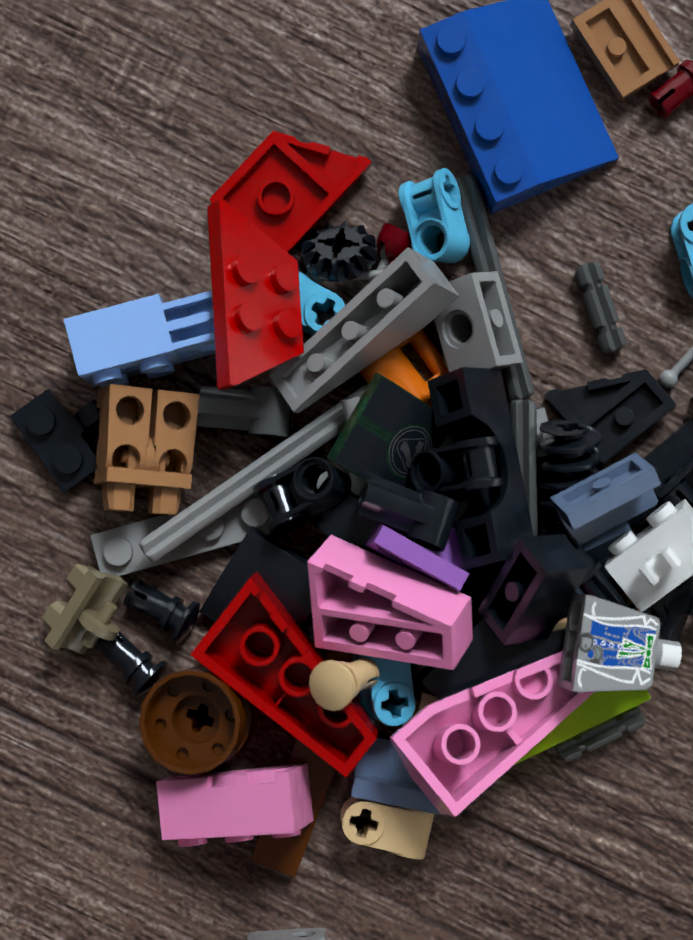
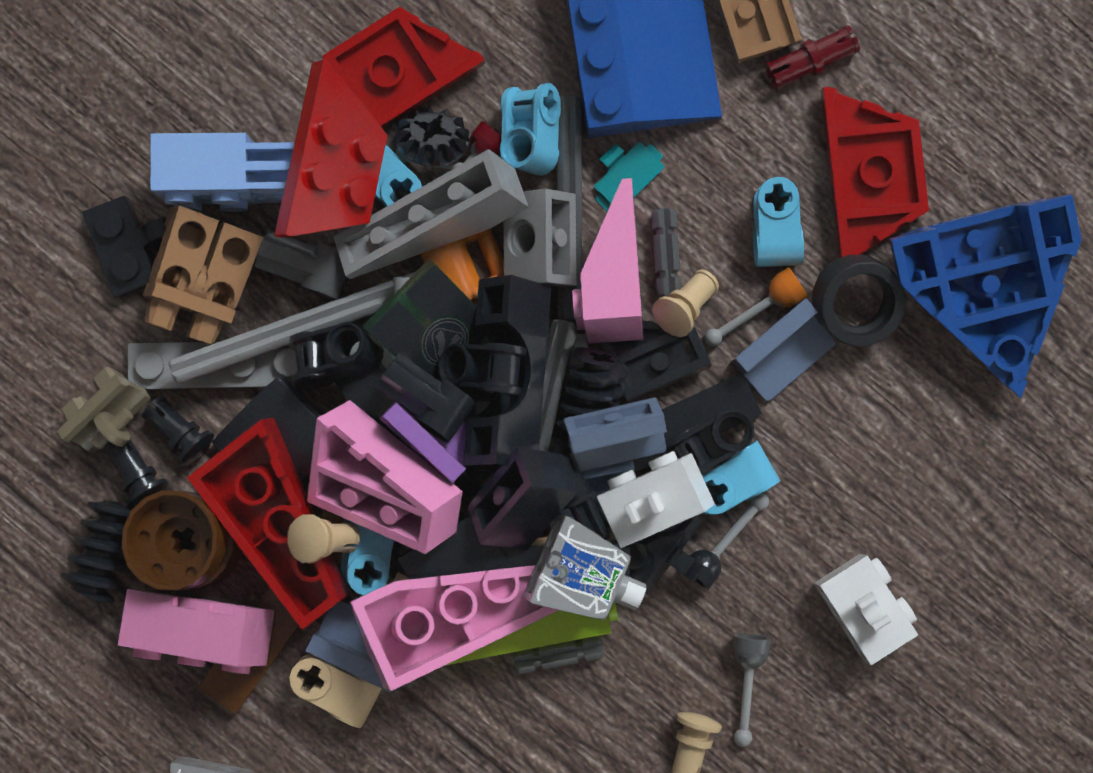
camera: 15 degrees right, 0 degrees up
(118, 749) = (100, 552): none -> black piece
(540, 240) = (639, 163): none -> teal piece
(565, 357) = (610, 287): none -> bright pink slope
(633, 357) = (682, 307): none -> tan pin

